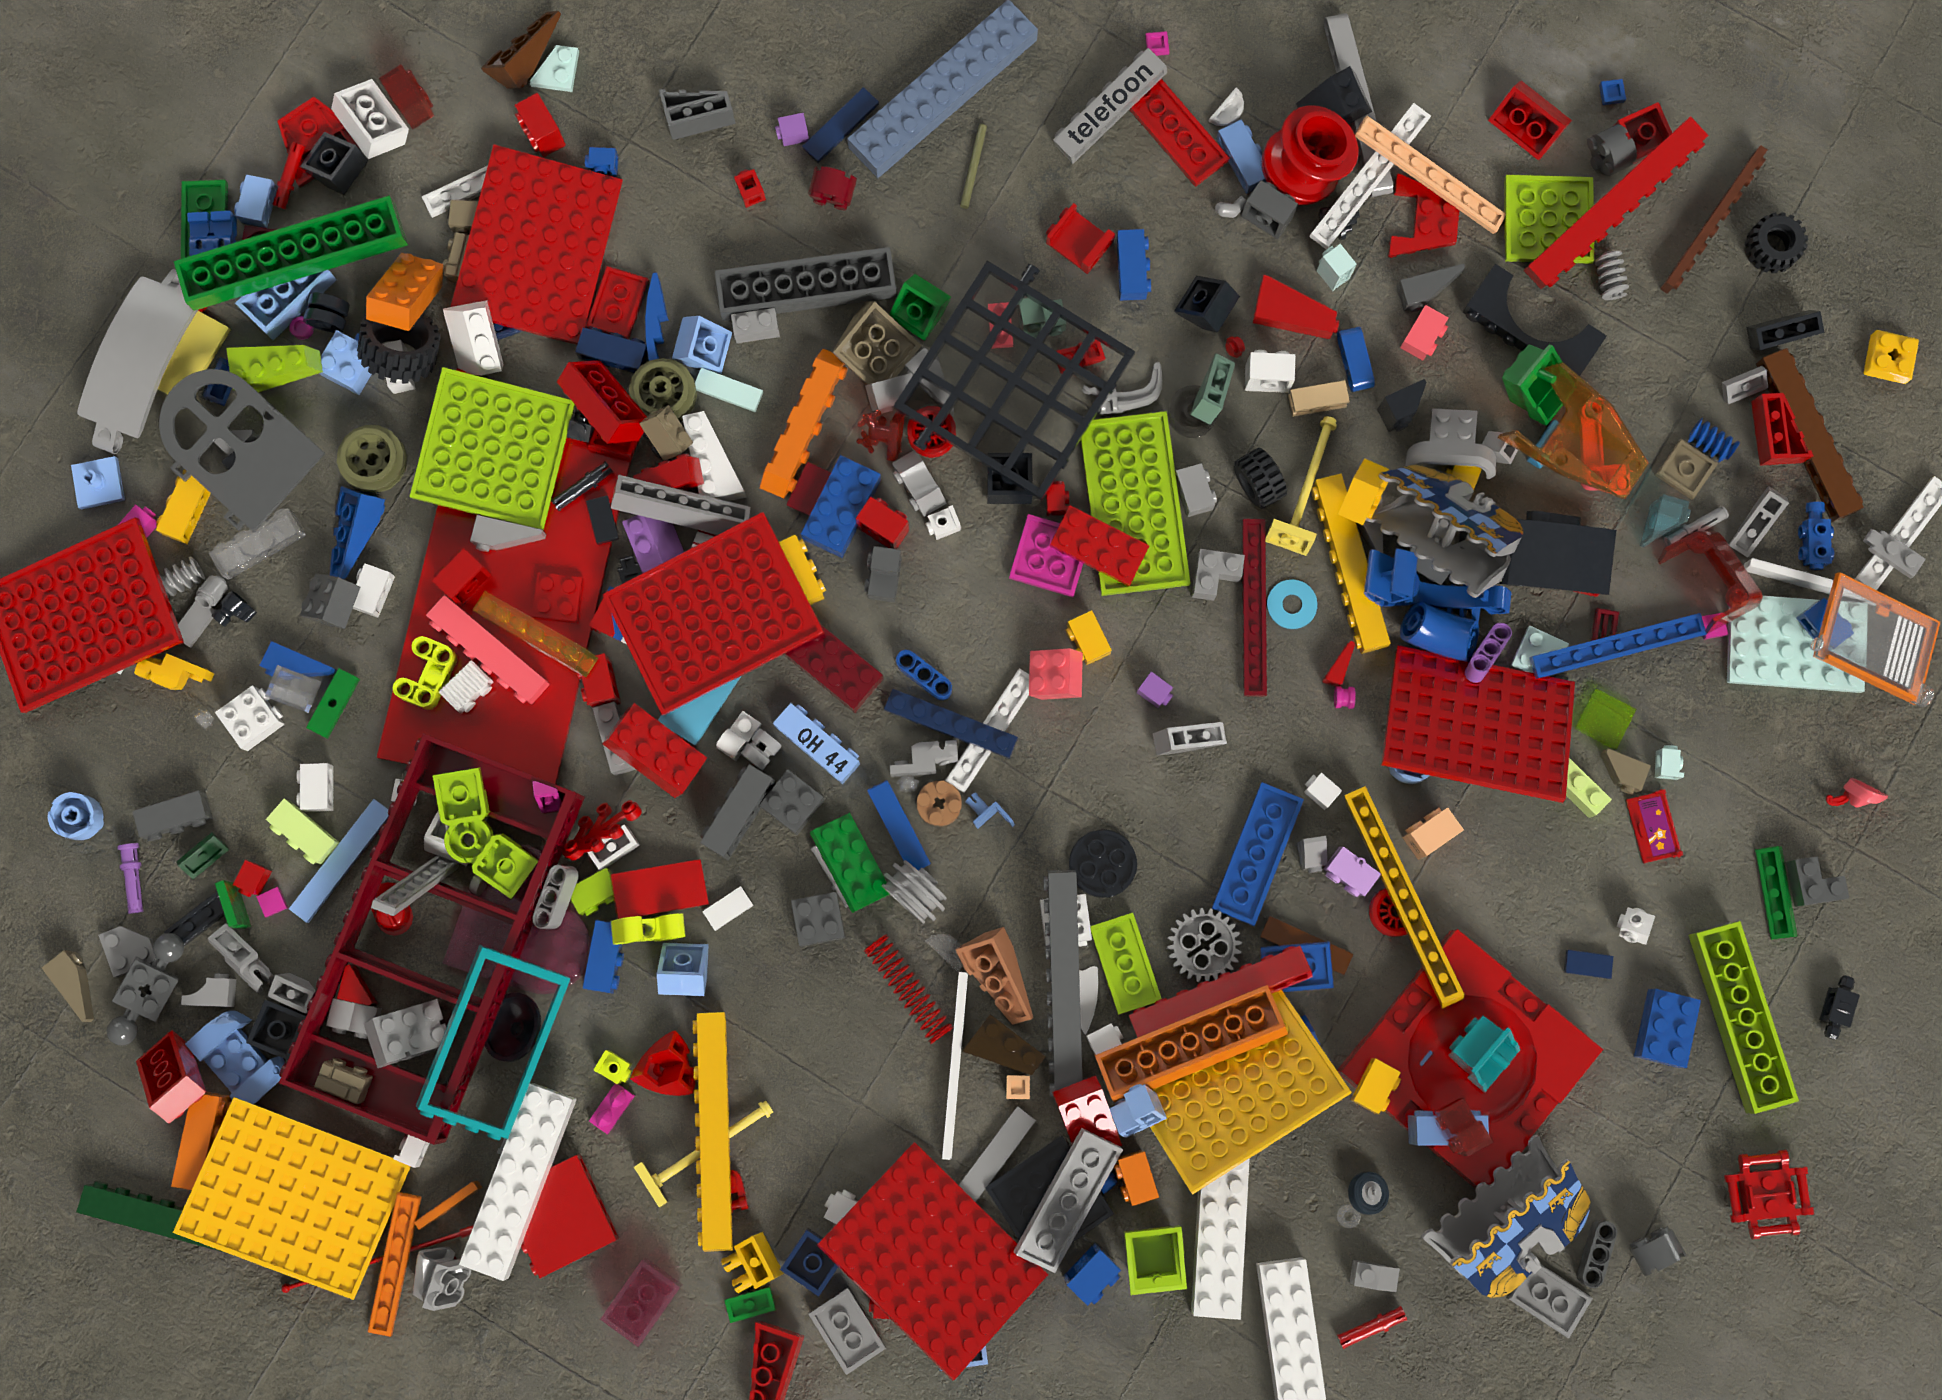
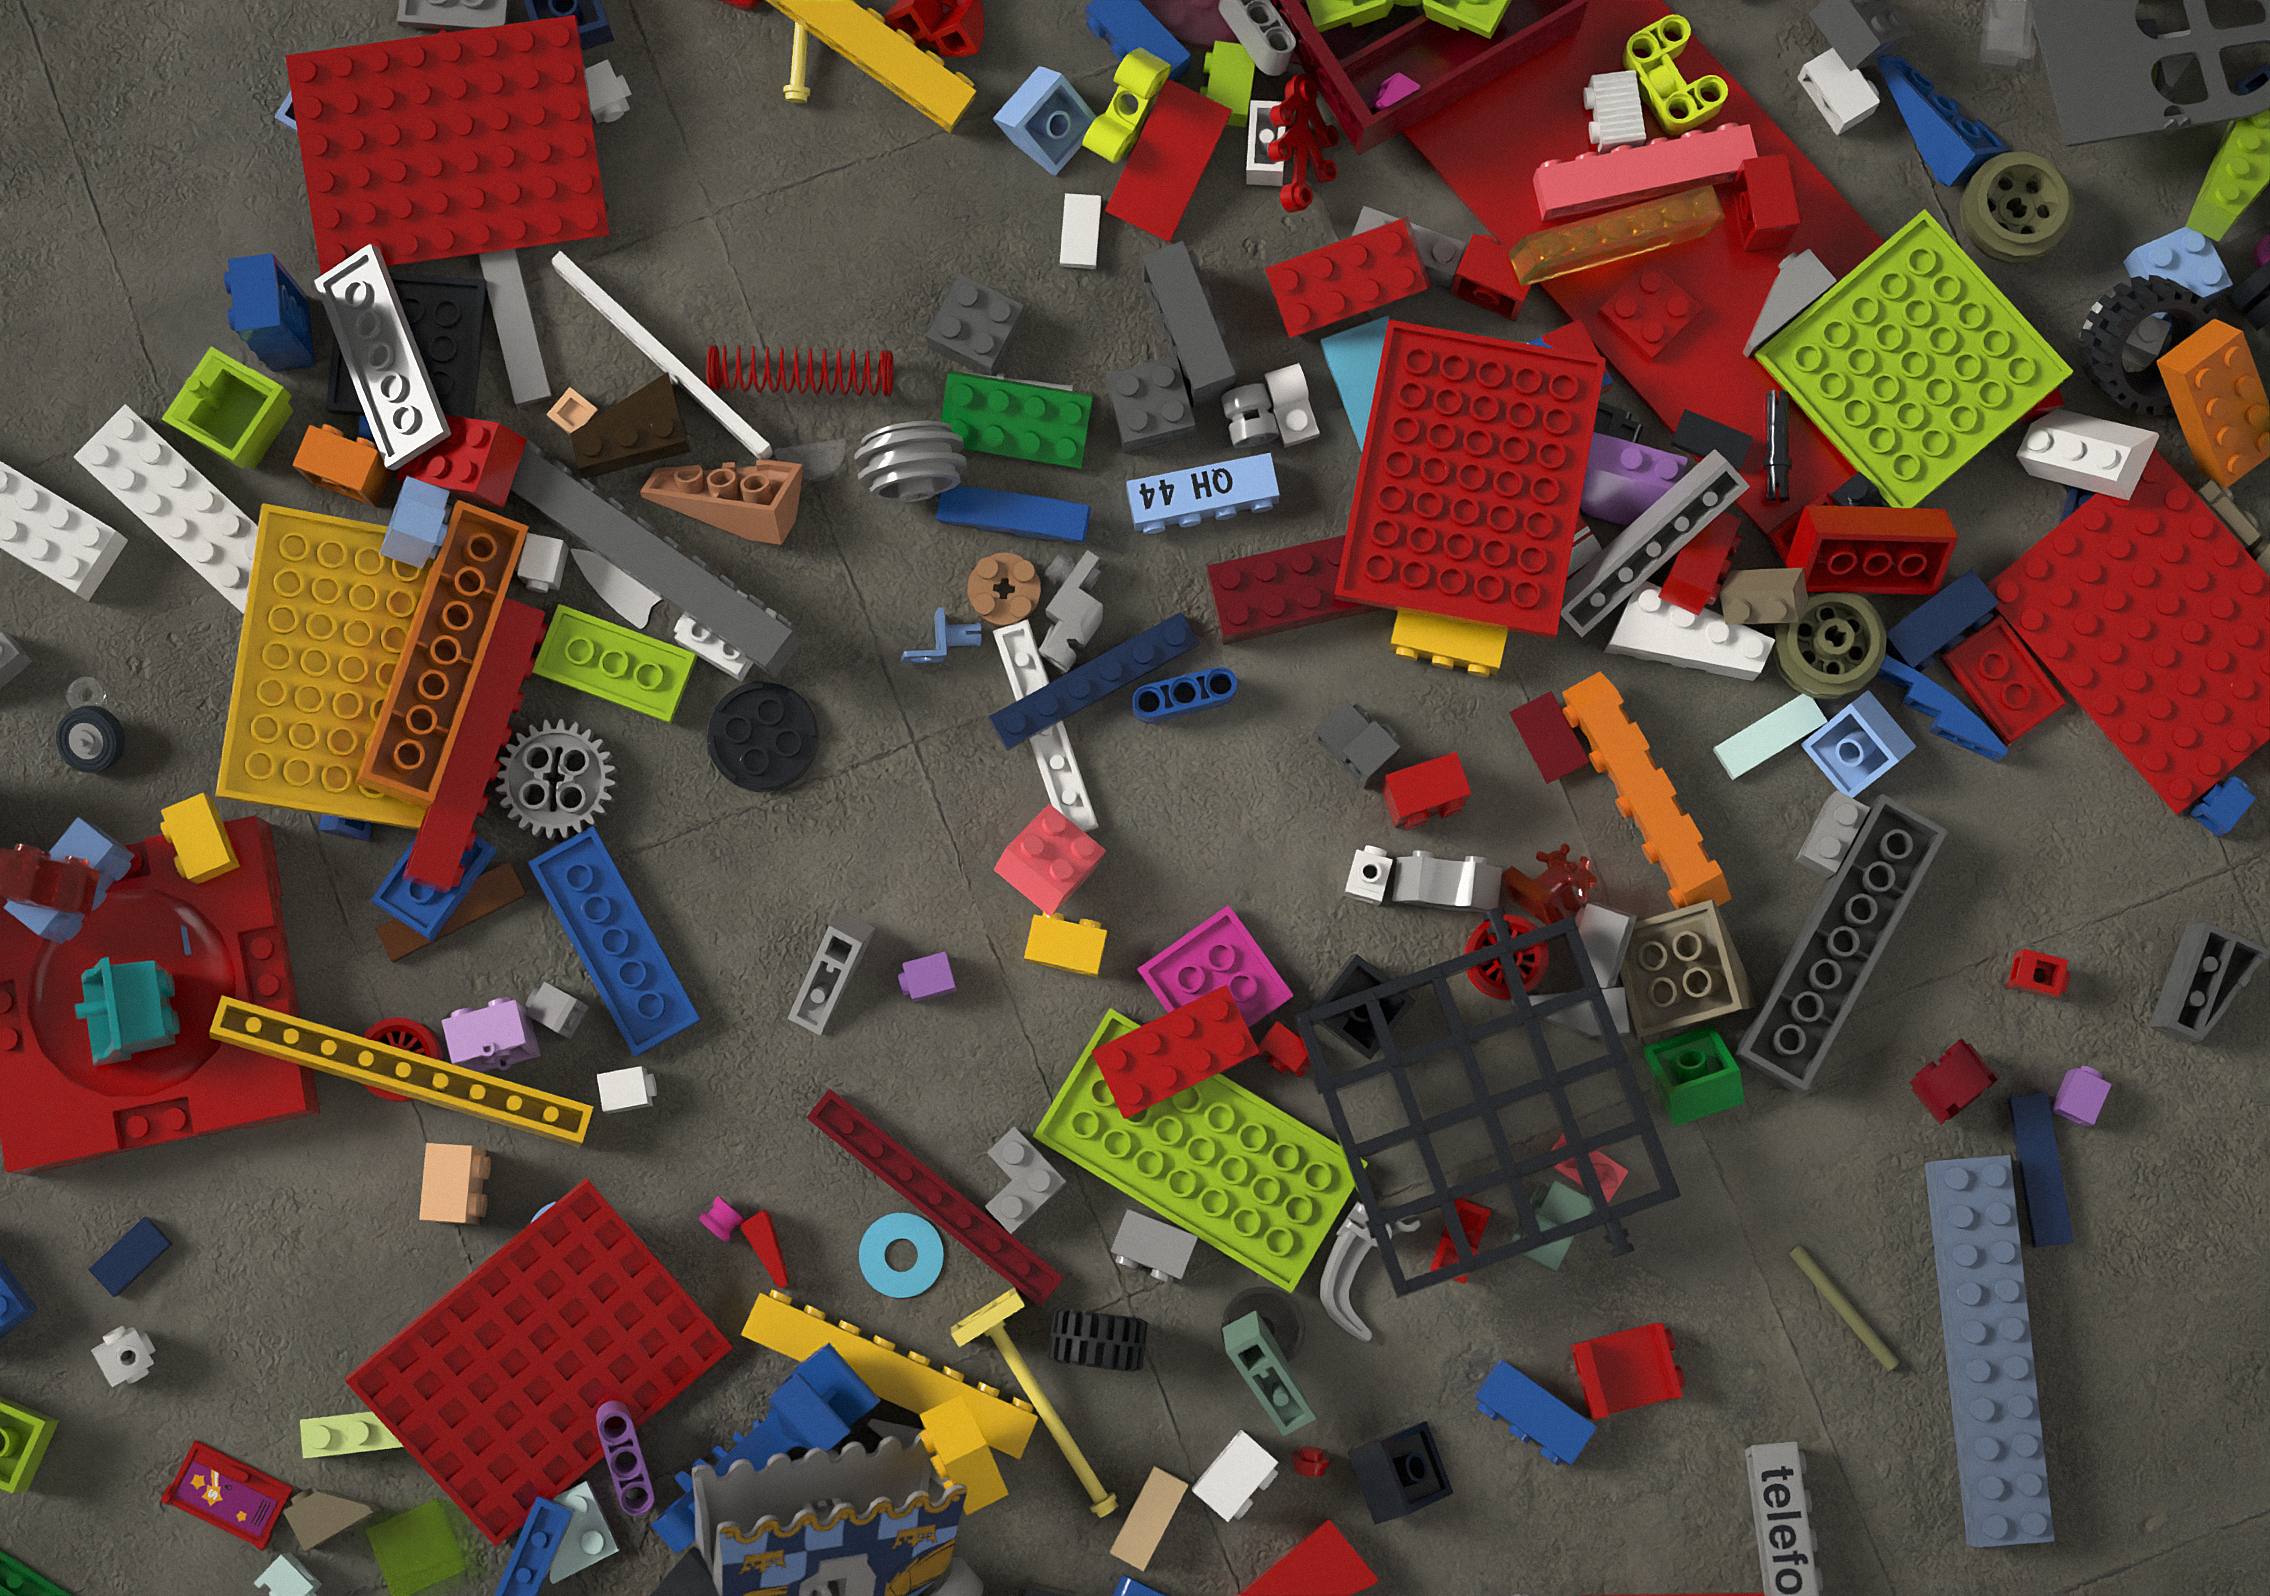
camera: 130 degrees right, 0 degrees up
(840, 502) = (1496, 757): blue brick -> none
(1440, 632) = (702, 1415): blue brick -> none

